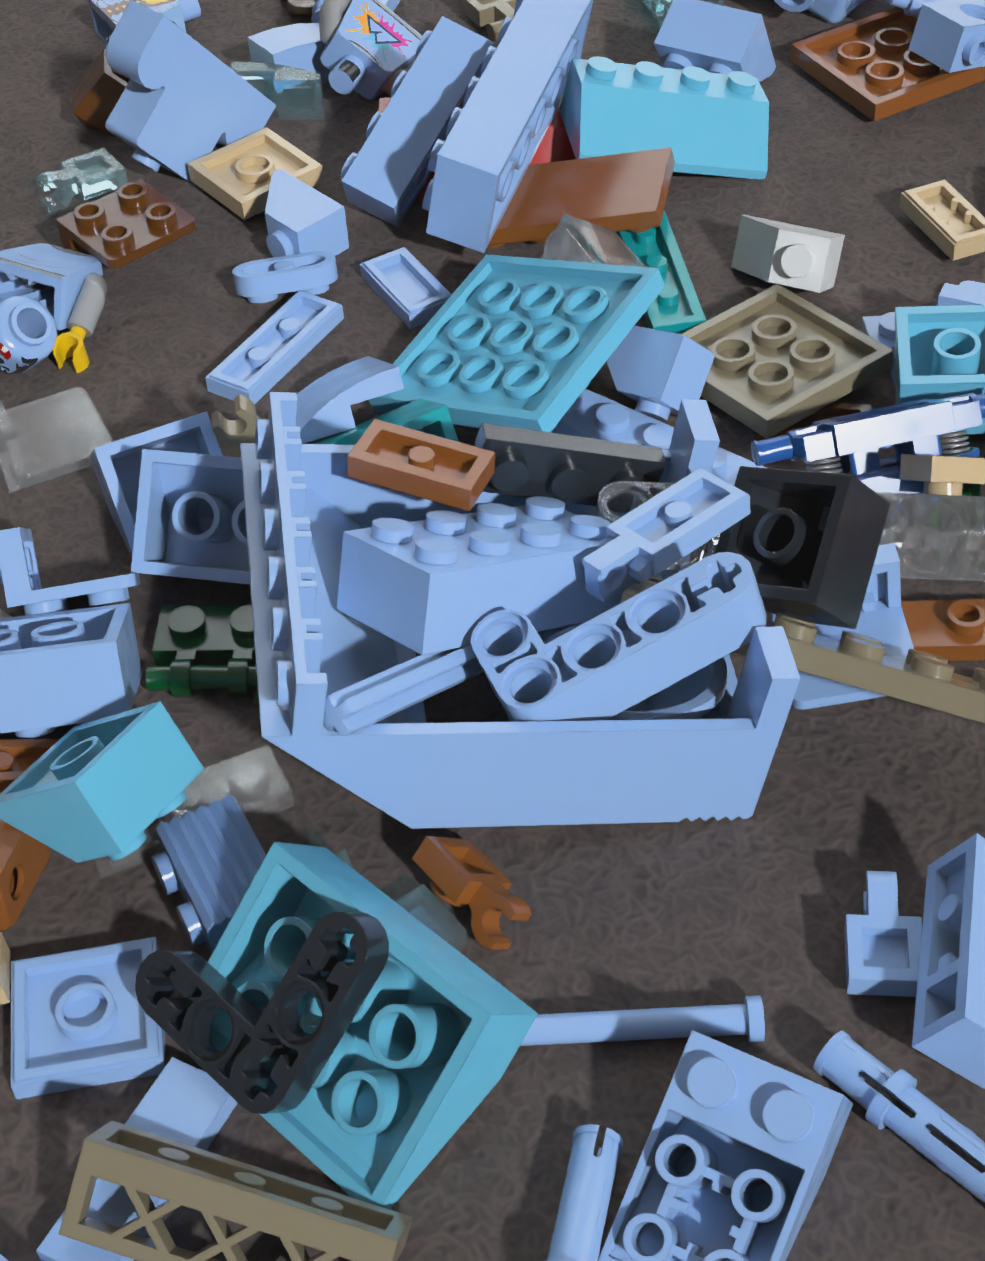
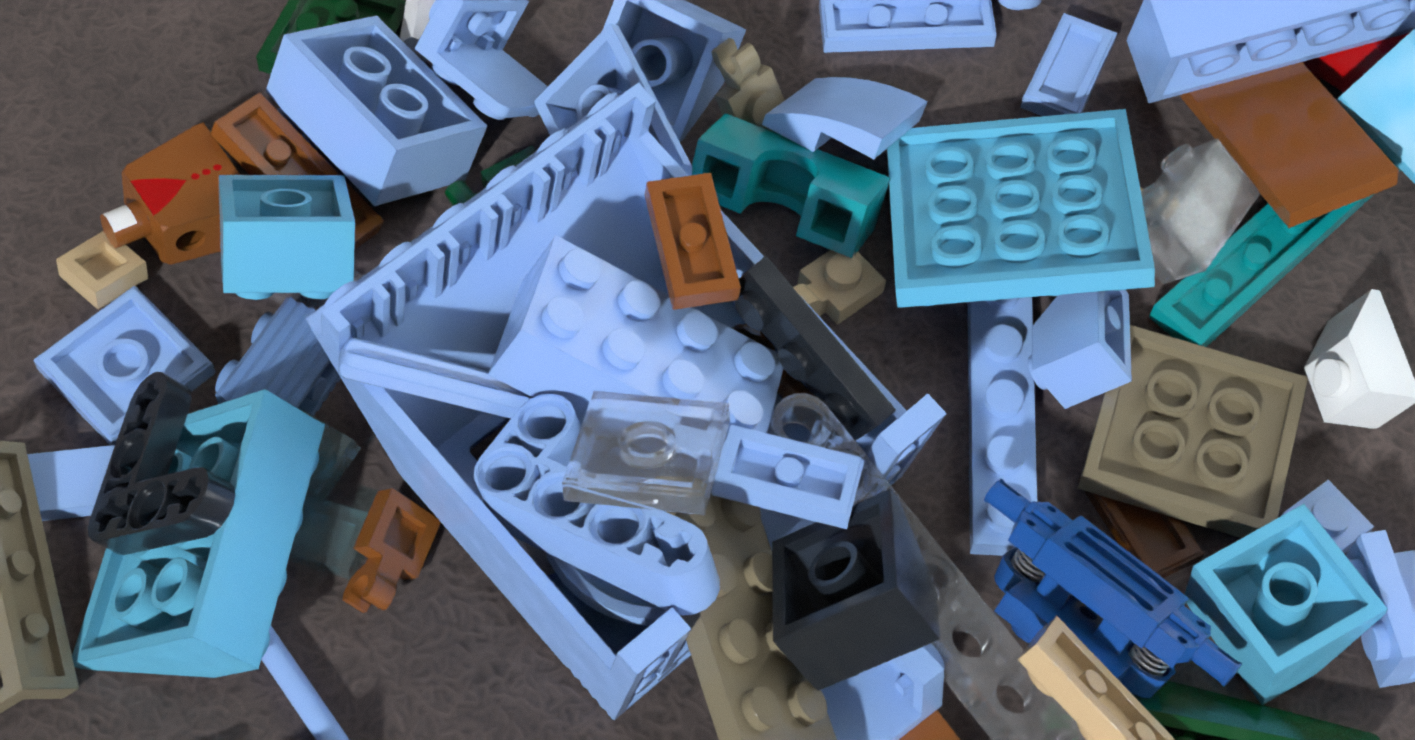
camera: 50 degrees right, 15 degrees up
(602, 570) = (647, 452): none -> clear tile

